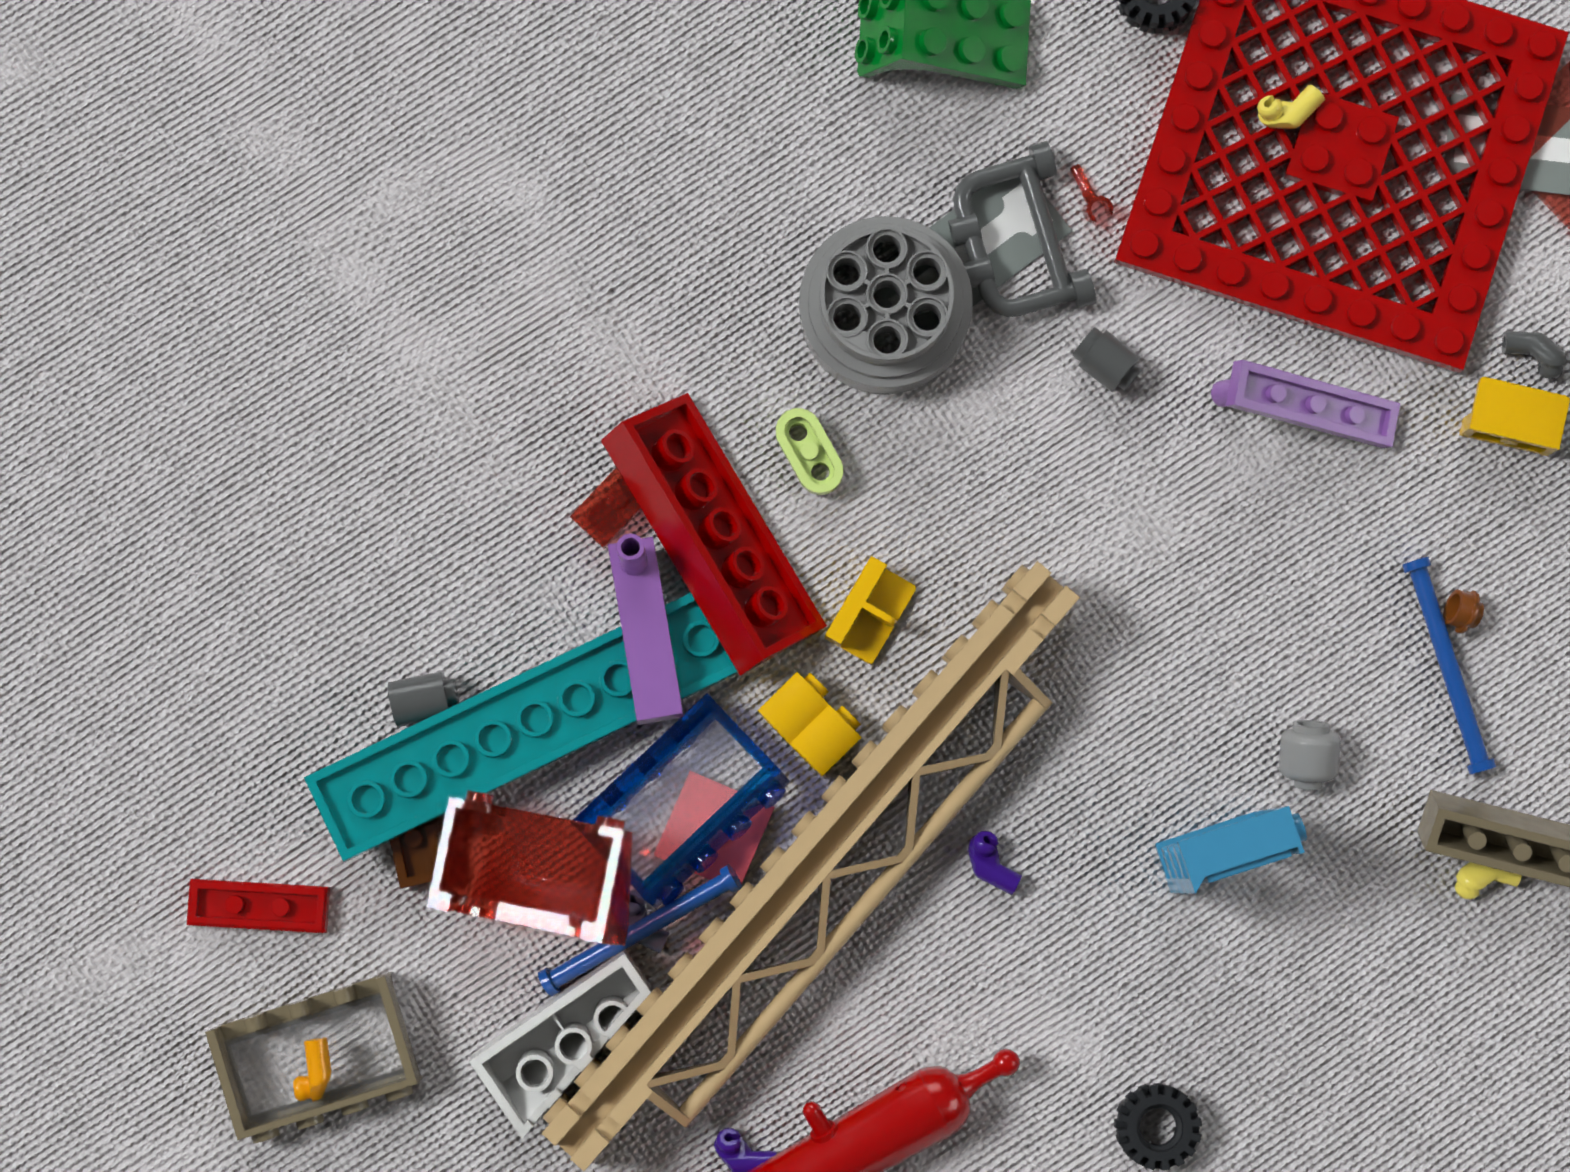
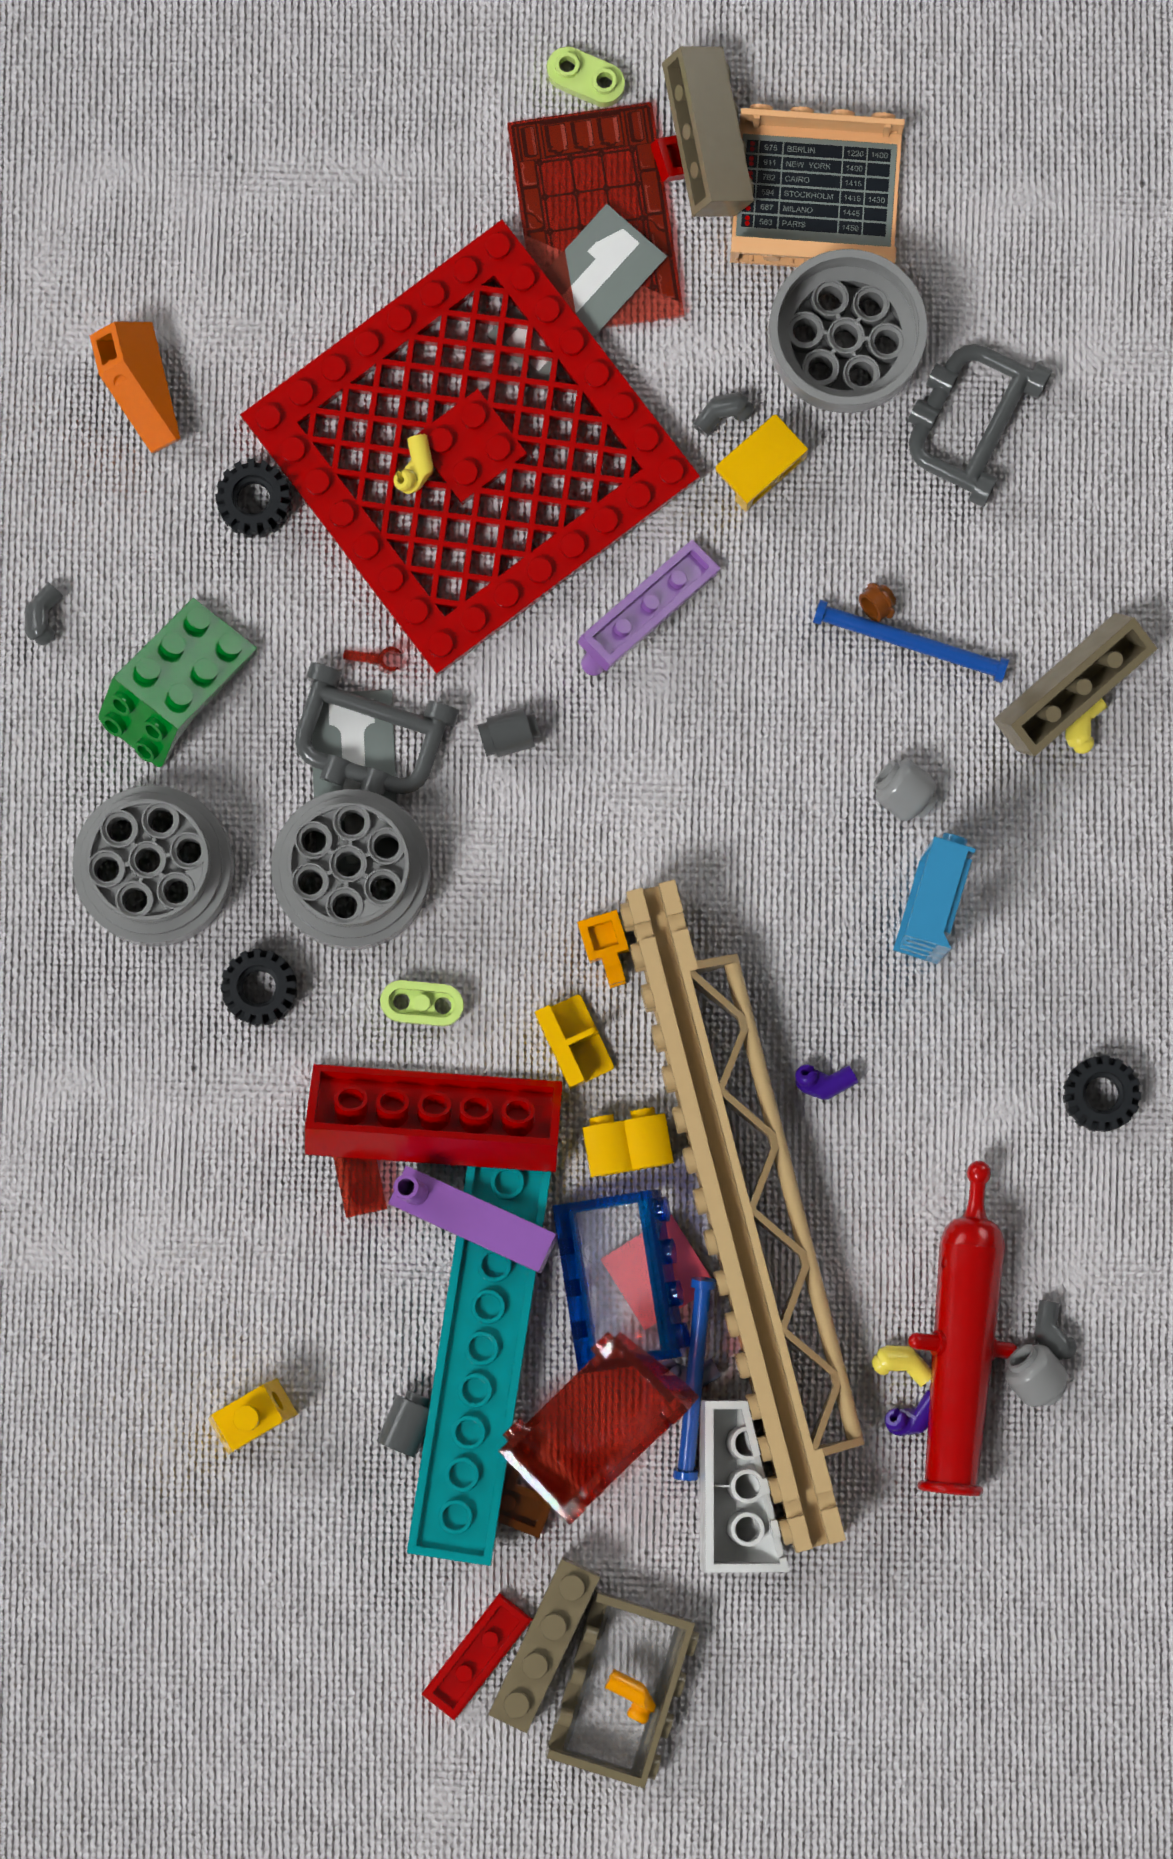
camera: 55 degrees left, 0 degrees up
(307, 959) = (544, 1644): none -> dark tan brick
(336, 556) = (252, 1416): none -> yellow torso
(728, 270) = (241, 968): none -> black tyre
(786, 181) = (207, 879): none -> light grey wheel
(787, 1107) = (901, 1359): none -> light yellow arm
(979, 576) = (604, 941): none -> light orange plate

